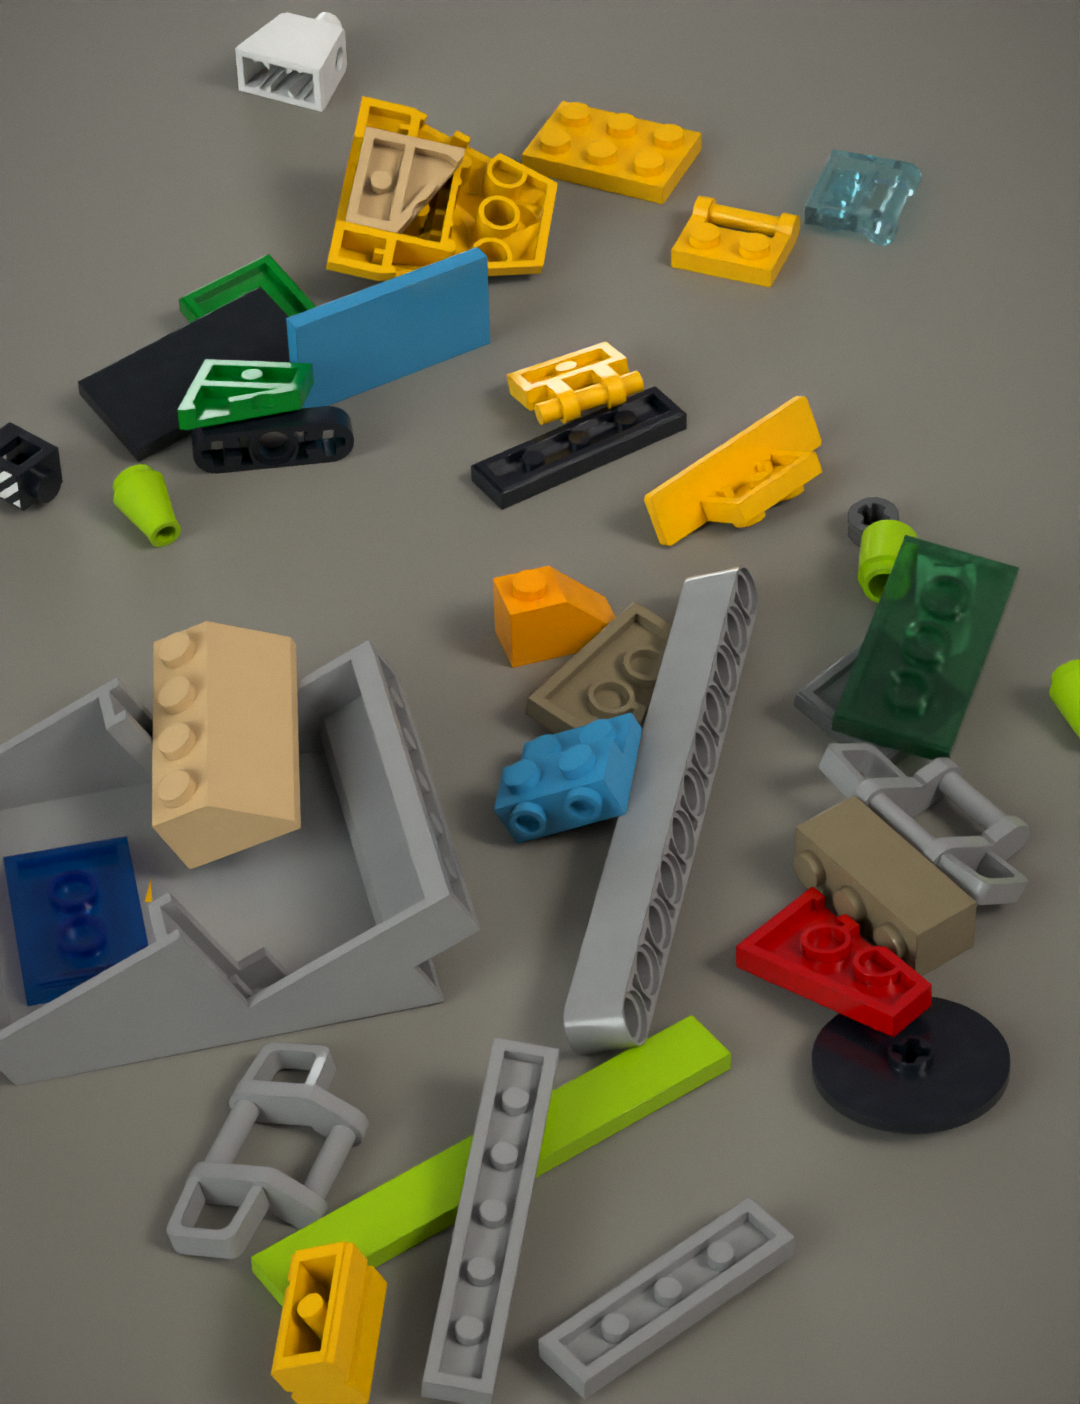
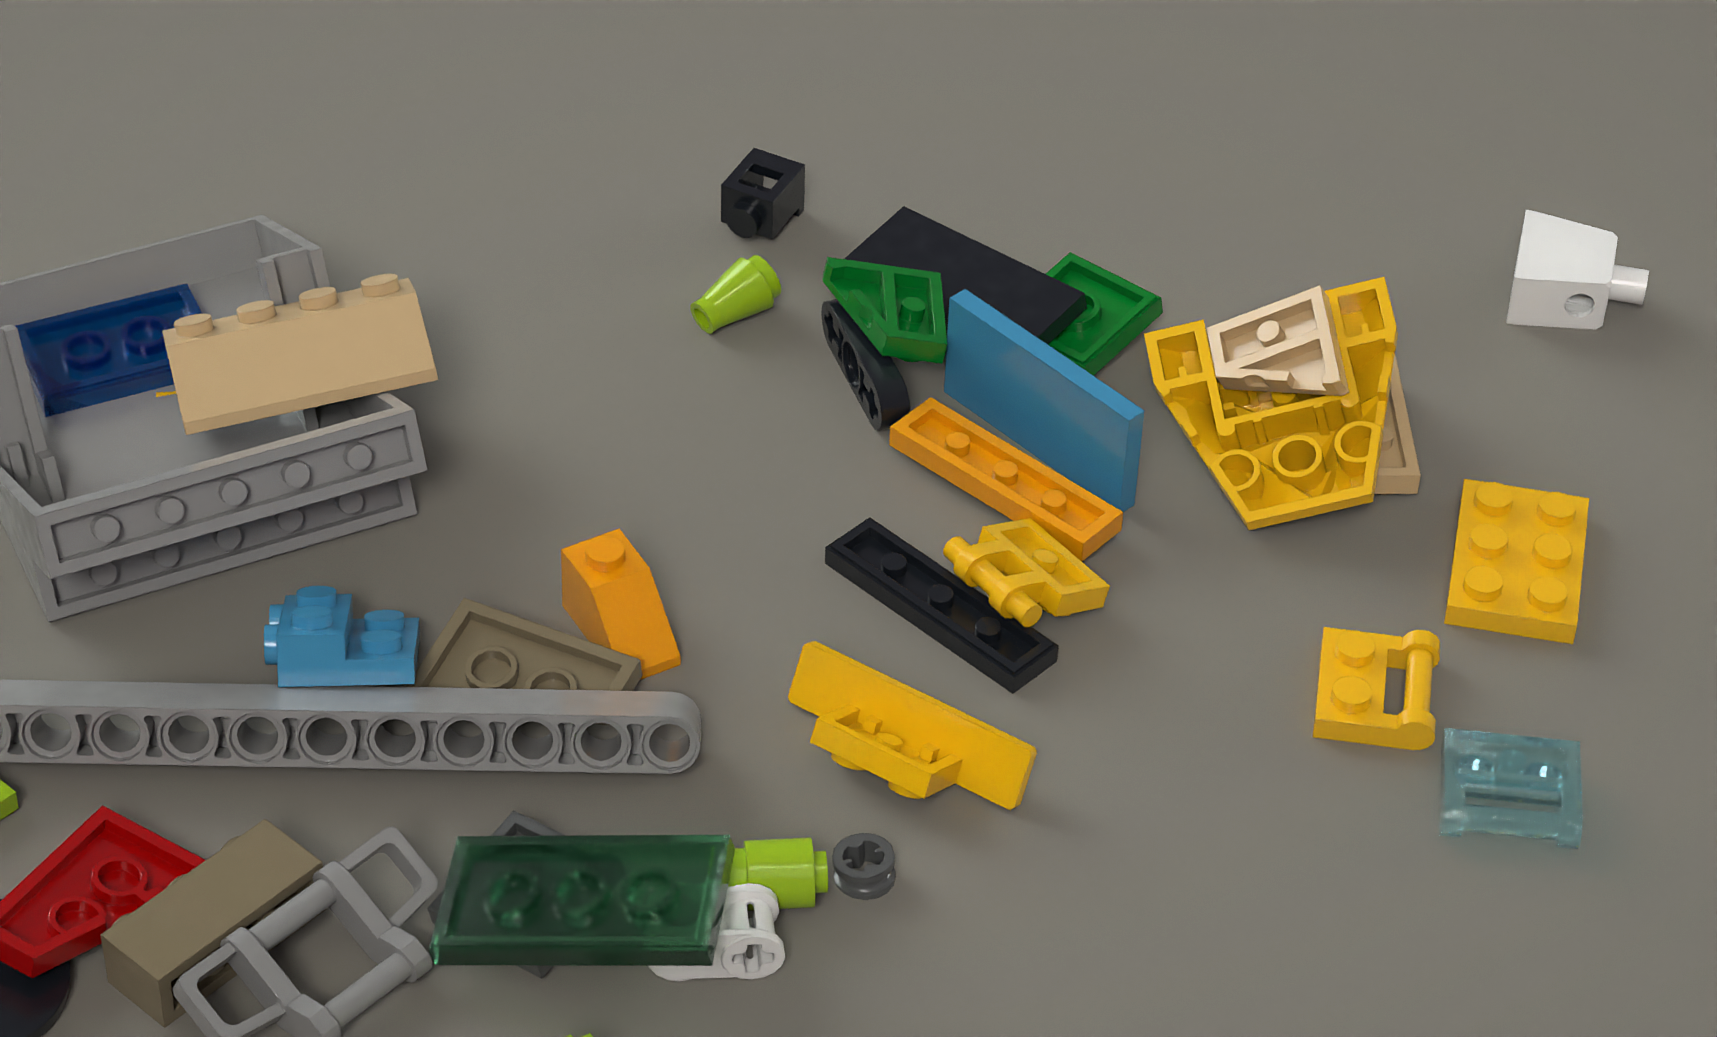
camera: 75 degrees right, 0 degrees up
(444, 384) = (1005, 477): none -> light orange plate

